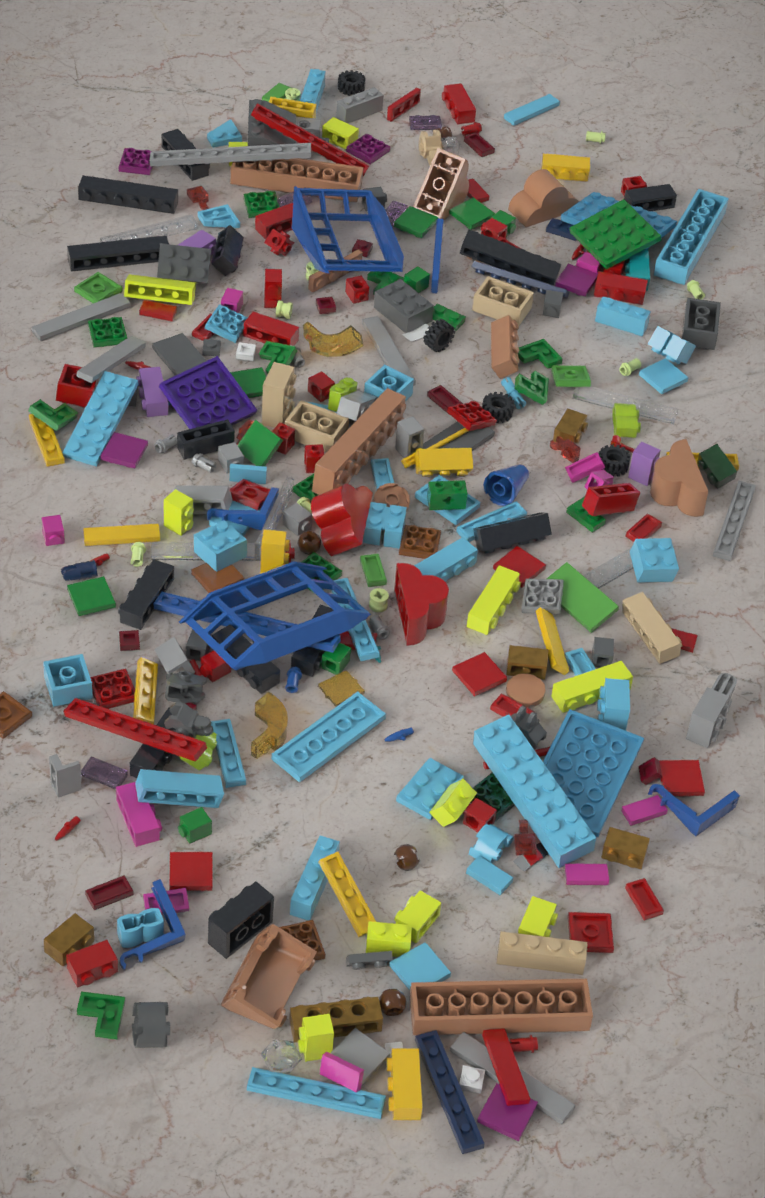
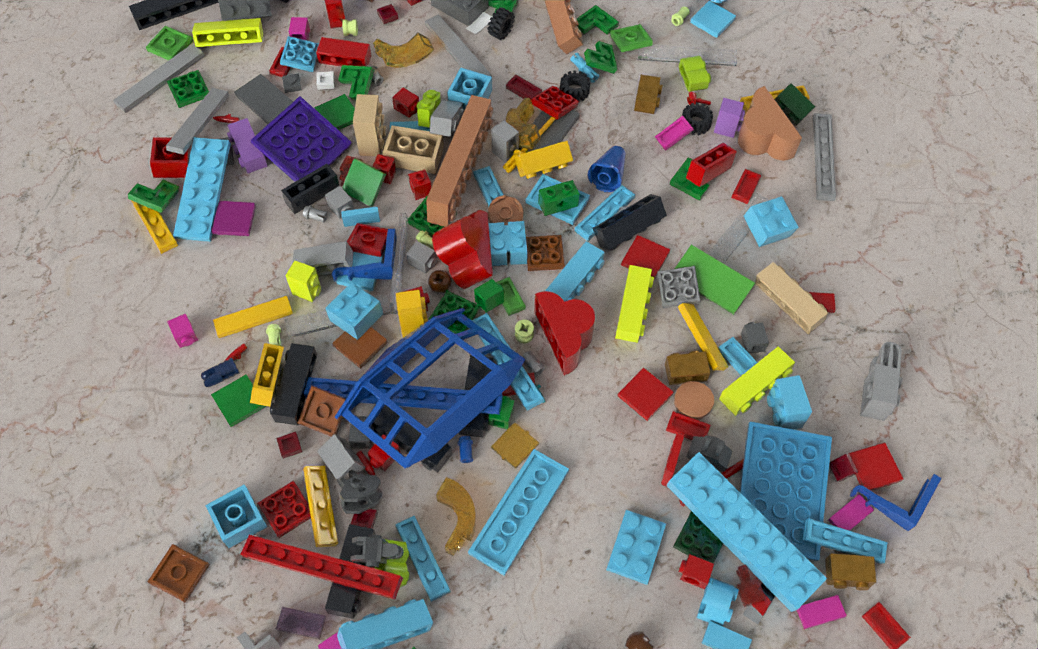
camera: 10 degrees left, 15 degrees up
(124, 578) = (266, 374): none -> yellow brick
(157, 310) = (231, 54): red tile -> none
(162, 445) = (270, 203): light grey pin -> none
(165, 619) = (320, 411): none -> dark orange tile
(353, 561) = (489, 295): none -> green brick
(399, 735) = (588, 487): blue helmet -> none
(432, 423) = (518, 119): none -> clear yellow arch
(453, 802) = (667, 565): neon yellow brick -> none
(489, 715) = (672, 459): none -> red tile
(568, 449) = (653, 117): clear red plate -> none
(602, 478) = (693, 146): dark pink brick -> none
(626, 821) = (844, 540): none -> medium azure tile

